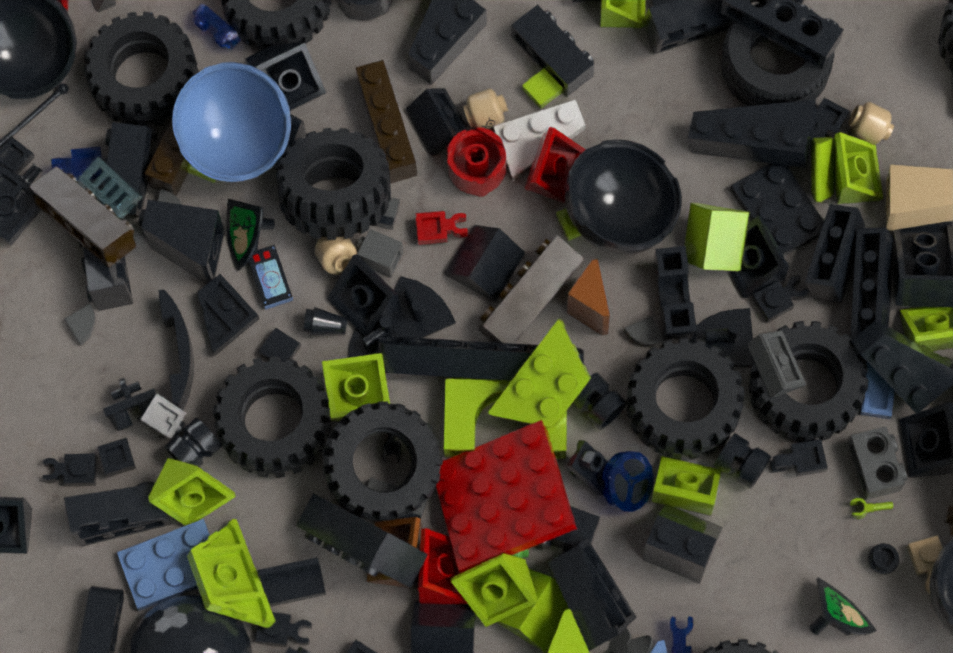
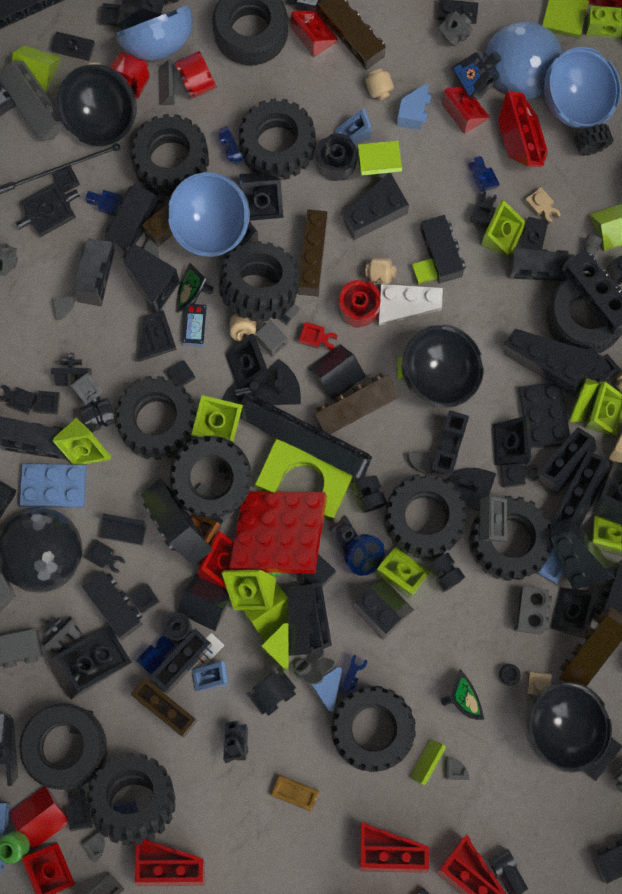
camera: 20 degrees right, 5 degrees up
(83, 216) = (90, 237): brick -> none
(128, 202) = (127, 237): clear light blue slope -> none
(181, 382) = (108, 372): black slope -> none
(229, 577) = (83, 510): lime wing -> none
(322, 322) = (214, 368): black cone -> none
(435, 118) = (346, 264): black panel -> none
(545, 382) = (337, 469): lime wing -> none
(552, 164) = (408, 324): red slope -> none
(588, 300) = (390, 424): dark orange slope -> none
(715, 237) = (492, 418): lime slope -> none
(804, 458) = (487, 587): black plate -> none
(869, 507) = (515, 637): lime hand -> none

